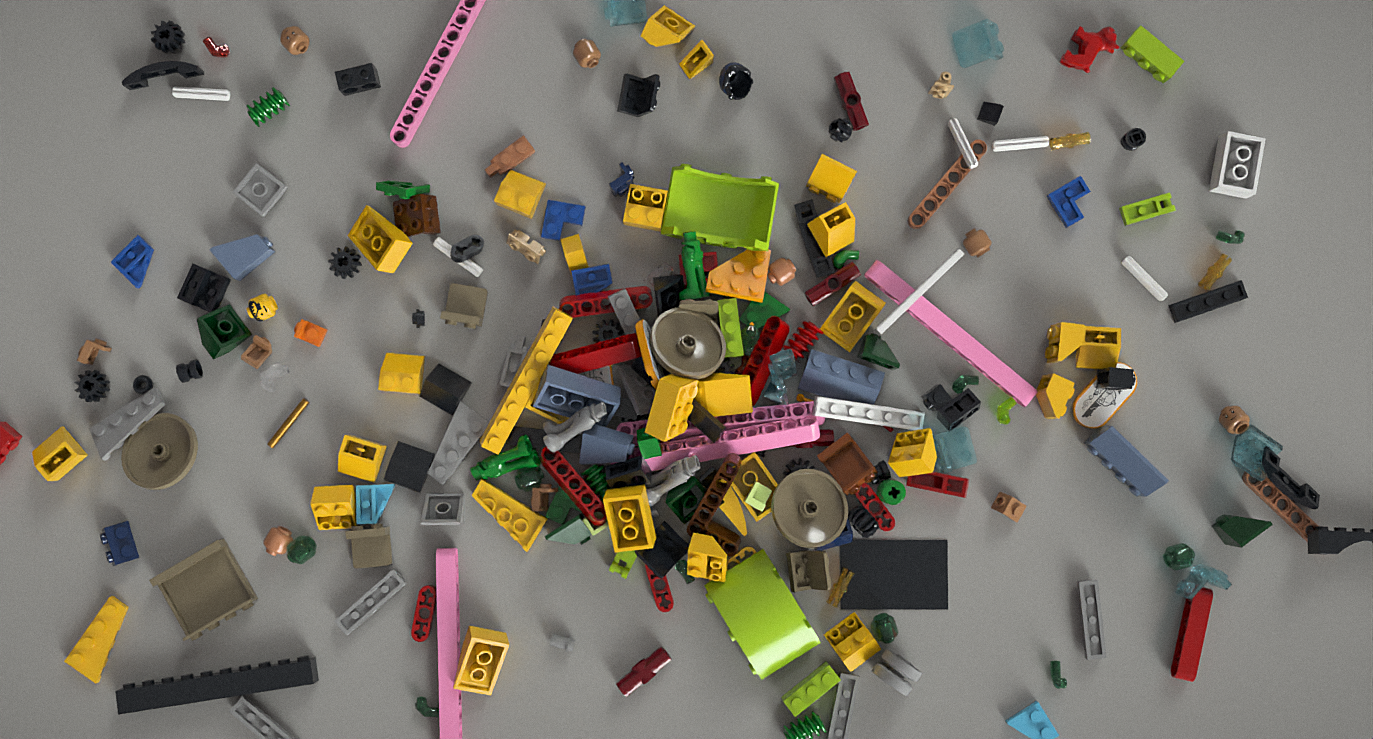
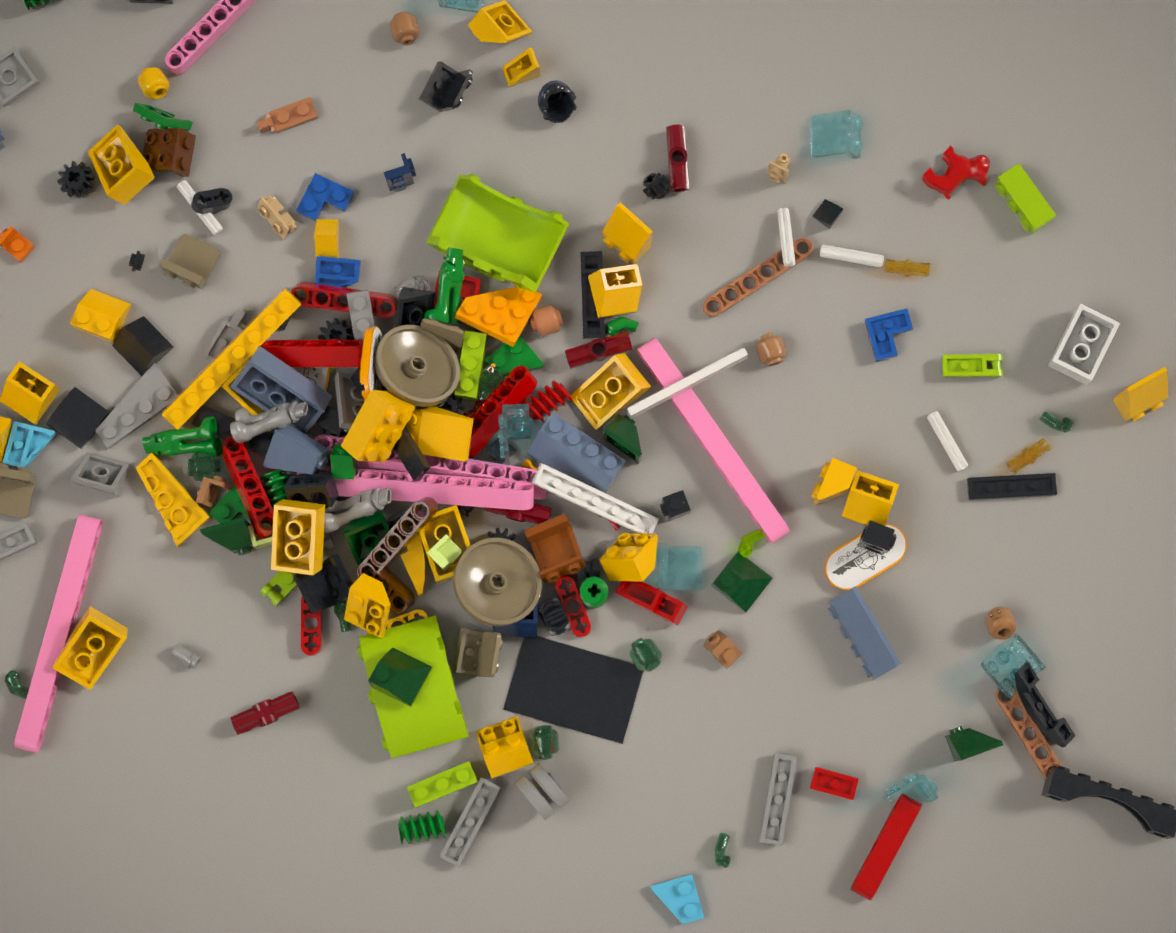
camera: 25 degrees right, 5 degrees down
(386, 160) = (153, 83): none -> yellow head
(426, 628) = (36, 583): red beam -> none
(519, 193) = (286, 158): yellow slope -> none
(645, 207) = (416, 210): yellow slope -> none
(753, 612) = (399, 676): none -> dark green slope
(840, 587) = (509, 683): clear yellow pin -> none
(947, 530) = (645, 654): none -> clear green head
(958, 409) = (696, 525): black brick -> none
(964, 380) = (711, 497): clear green arm -> none
(1007, 445) = (741, 582): none -> dark green slope
(1053, 395) = (804, 536): yellow slope -> none
(1129, 139) = (975, 288): black wheel -> none
(1133, 592) = (834, 783): none -> red plate
(1179, 556) = (896, 757): clear green head -> none
(1299, 194) = (1143, 395): none -> yellow slope

